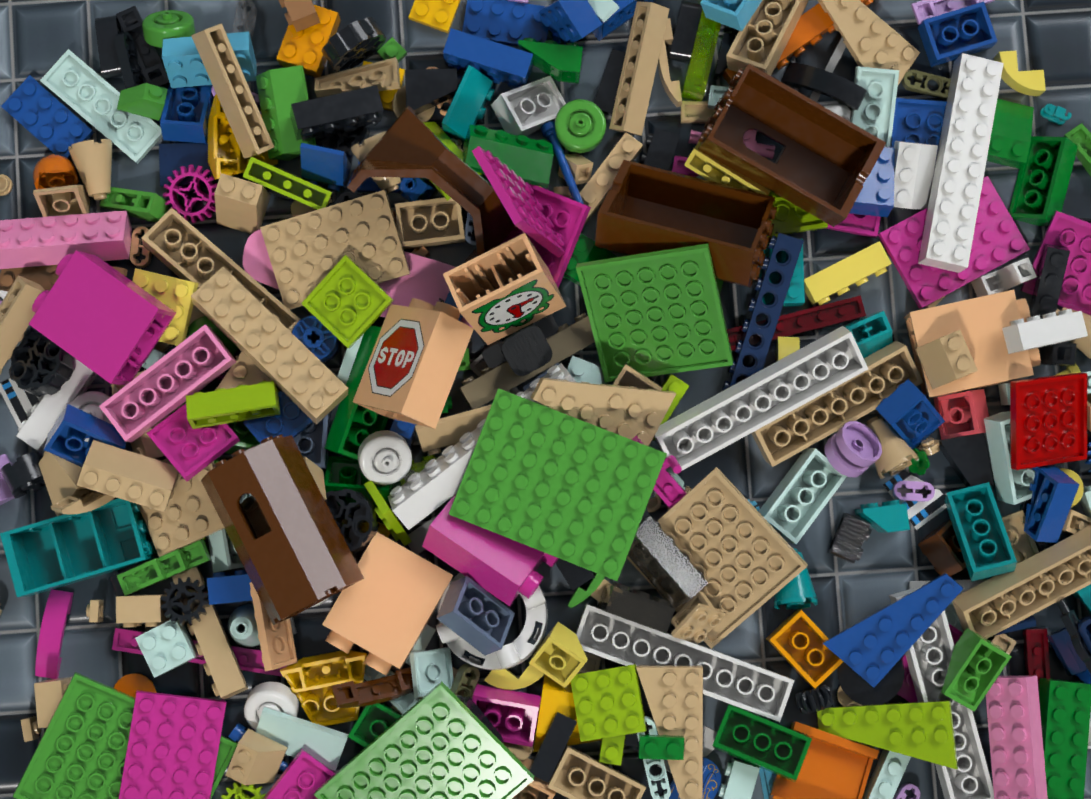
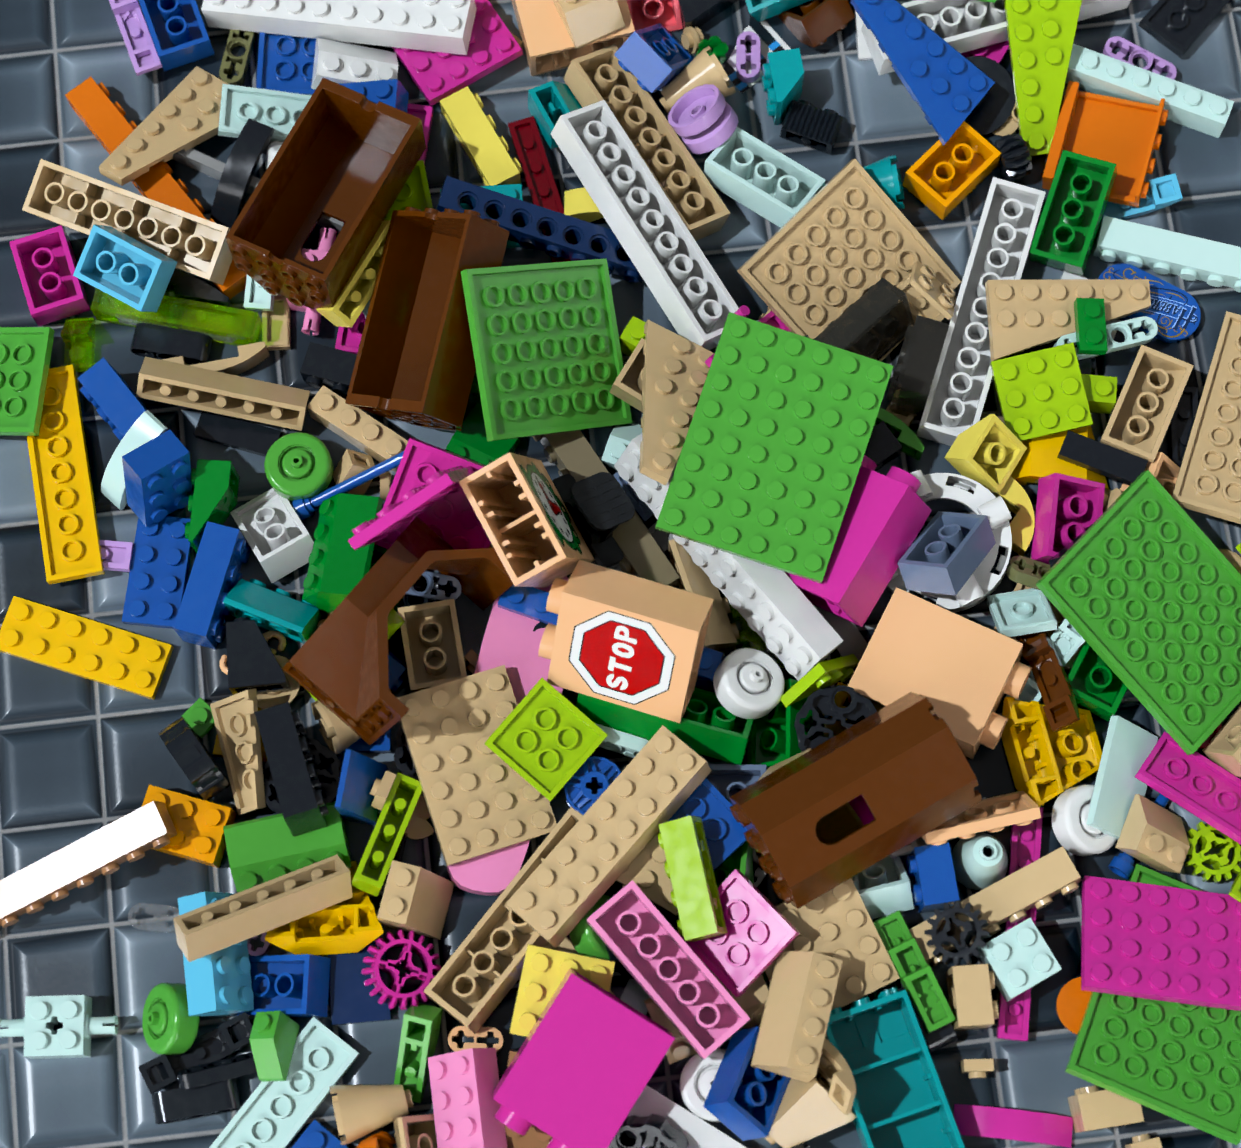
camera: 85 degrees left, 10 degrees down
(319, 180) = (381, 789): none -> tan plate

